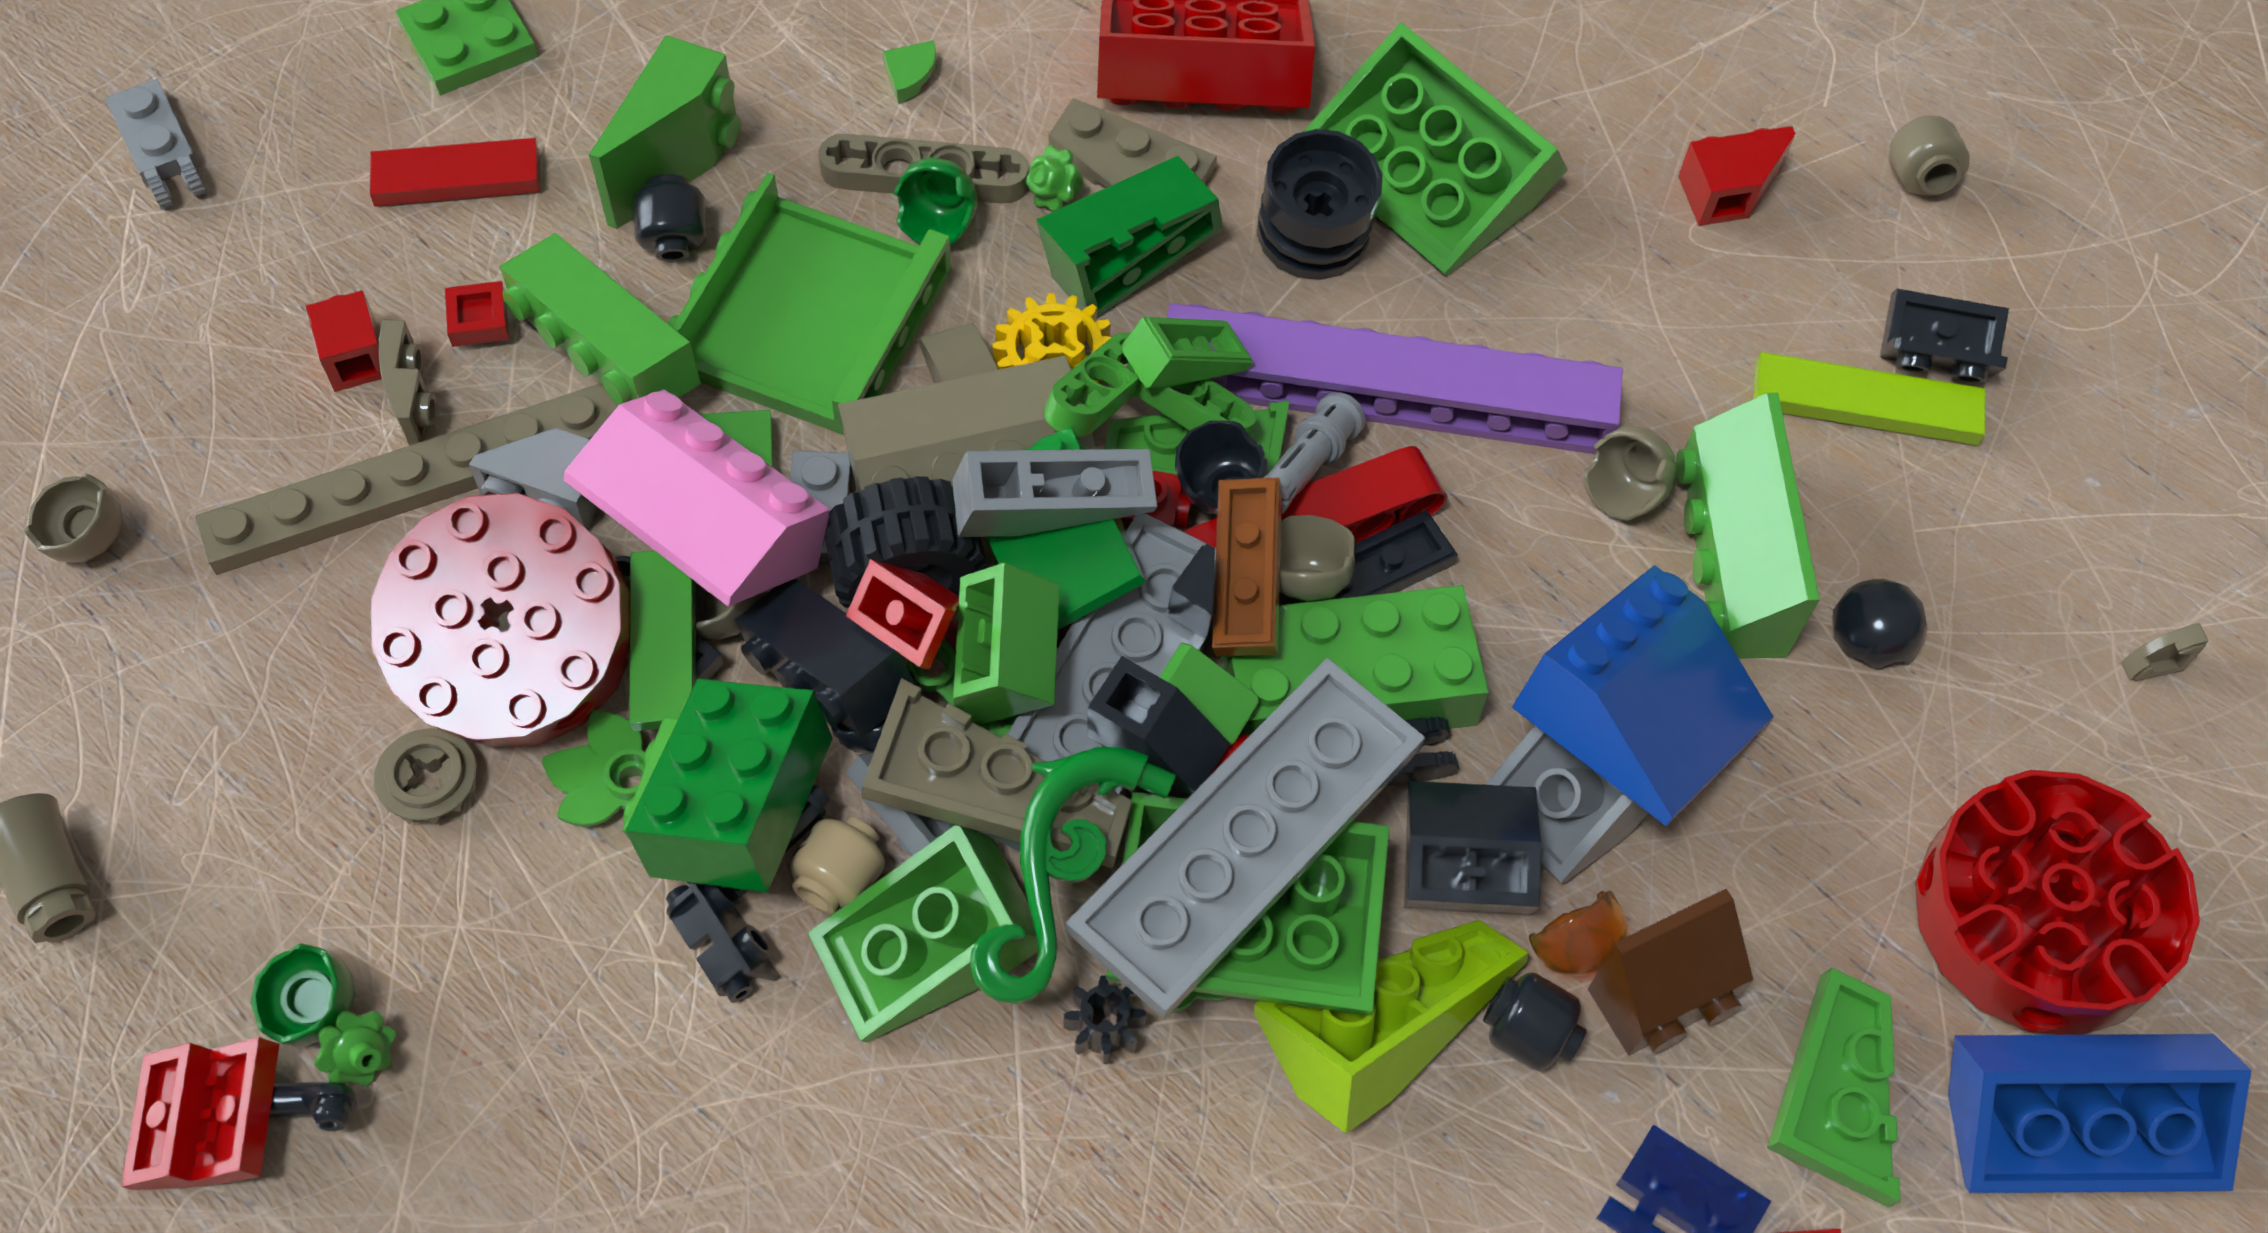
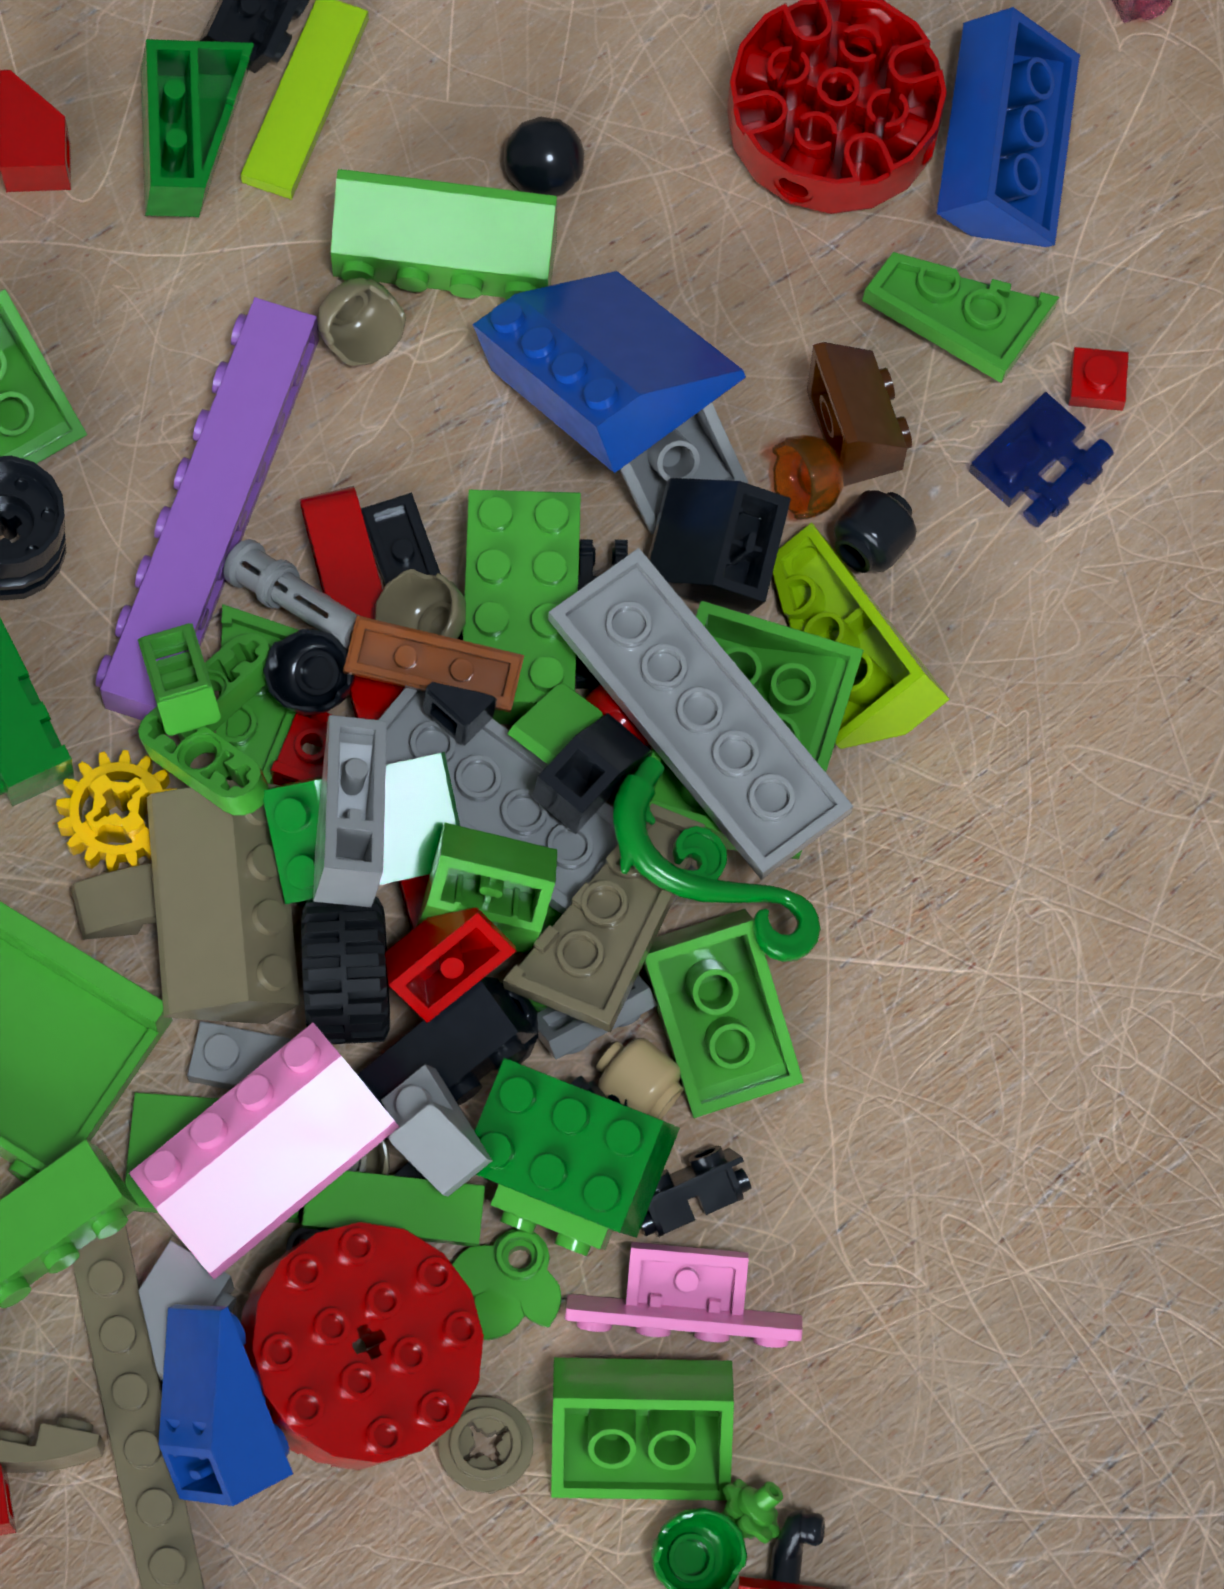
camera: 80 degrees left, 10 degrees up
(383, 502) = (214, 1411): none -> blue slope
(447, 920) = (642, 1428): none -> bright green slope
(593, 948) = (685, 1292): none -> bright pink bracket
(725, 641) = (434, 1131): none -> light grey slope
(1105, 1037) = (820, 860): black gear -> none
(1799, 289) = (186, 116): none -> green wedge

